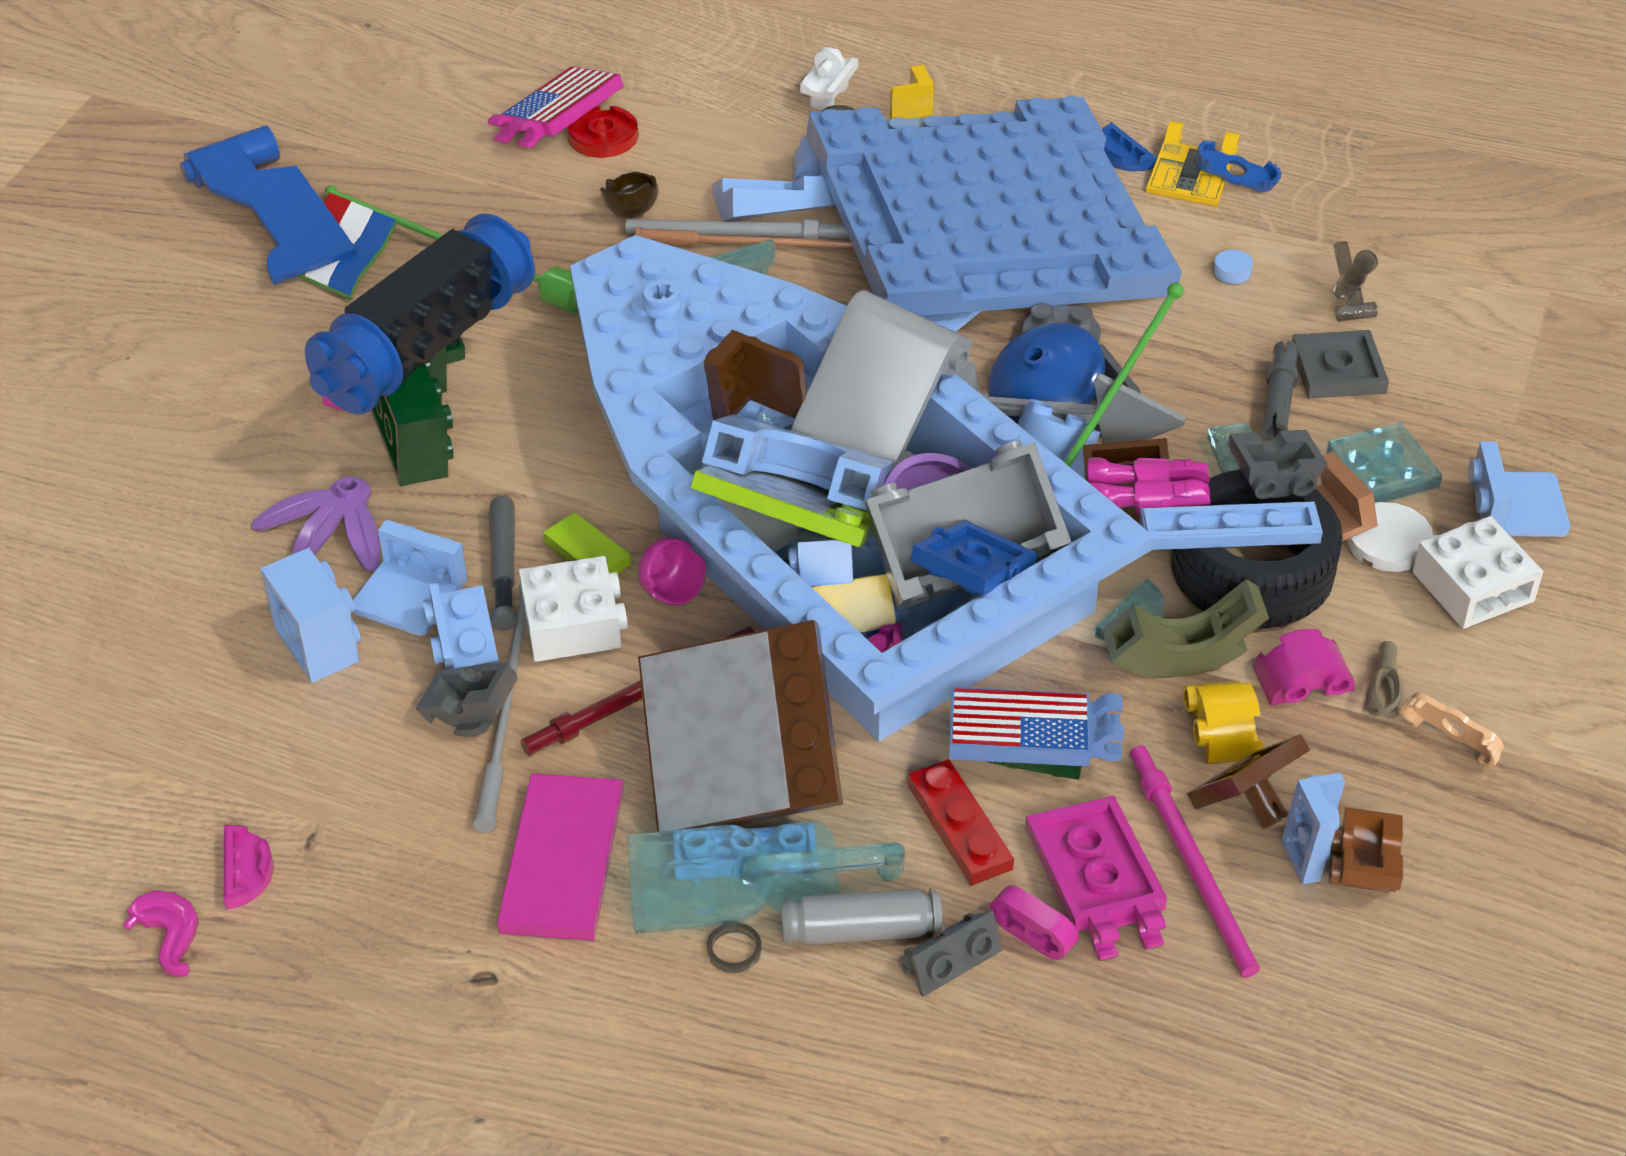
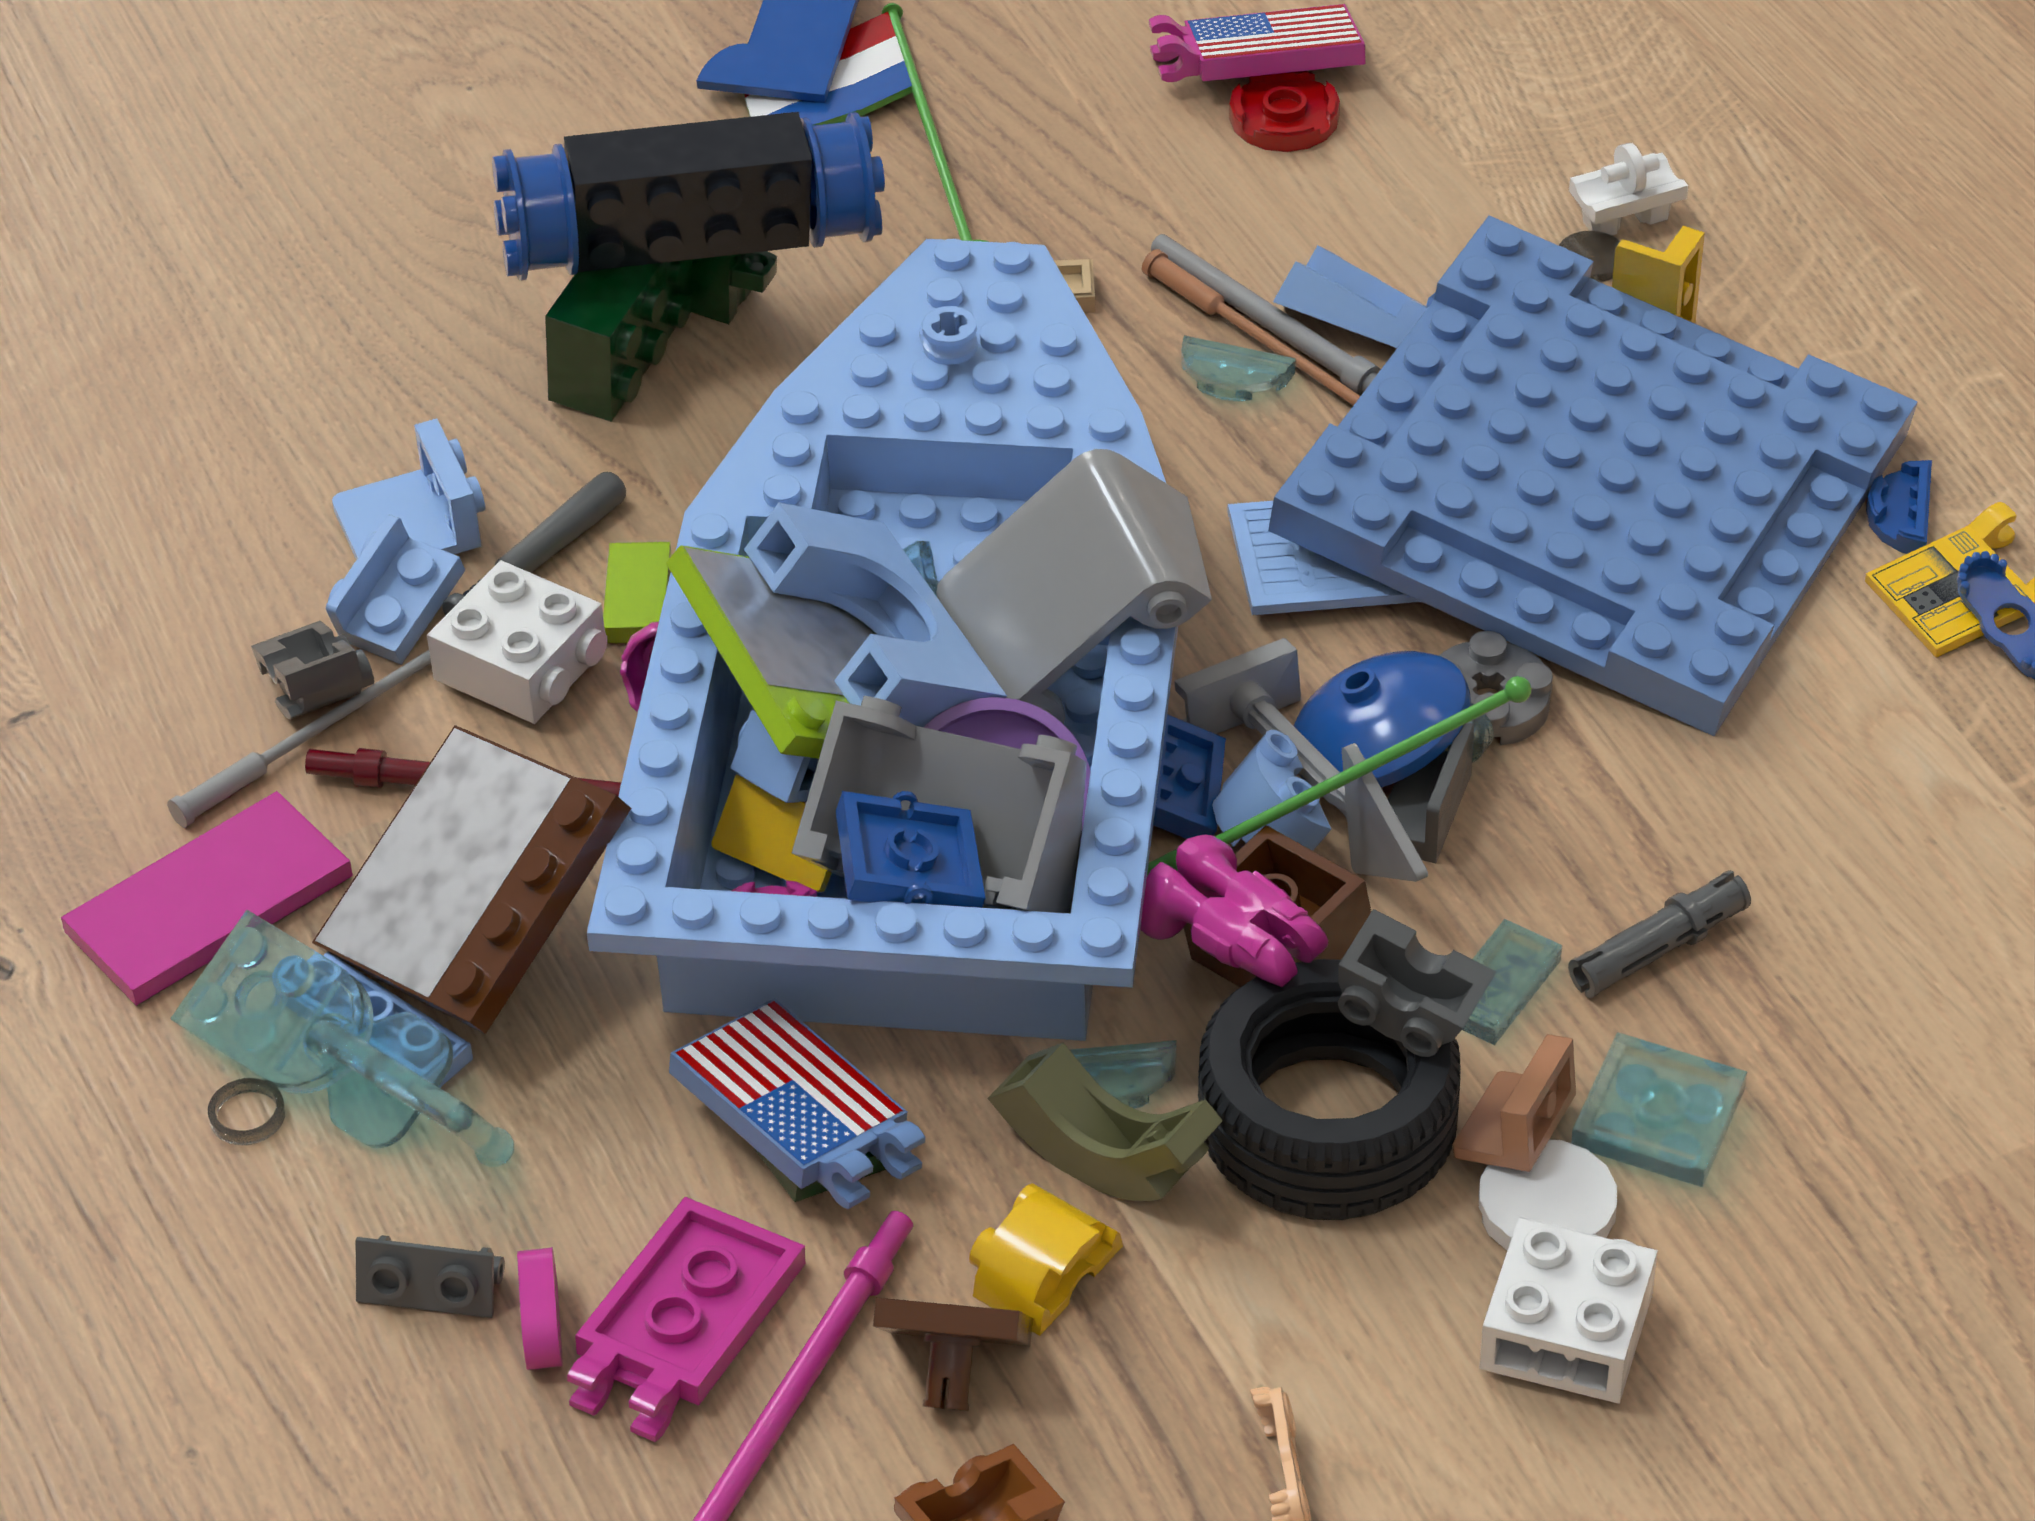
camera: 45 degrees right, 0 degrees up
(312, 614) = (261, 476): light blue brick -> none
(345, 500) = (444, 375): medium lavender plant -> none
(630, 194) = (1199, 204): dark brown hair -> none
(752, 370) = (922, 481): reddish brown bracket -> none
(861, 916) = (383, 1169): light grey axle -> none
(960, 822) = (620, 1155): red plate -> none
(1232, 525) = (1276, 1028): light blue tile -> none
(1233, 266) = (1832, 744): light blue tile -> none
(1301, 665) = (1222, 1269): dark pink cylinder -> none
(1312, 824) = (942, 1421): light blue bracket -> none
(1340, 364) = (1795, 954): dark grey tile -> none
(1350, 282) = (1940, 864): clear smoke piece -> none
(1385, 672) = (1304, 1350): dark tan piece -> none
(1519, 501) = (1763, 1265): light blue bracket -> none

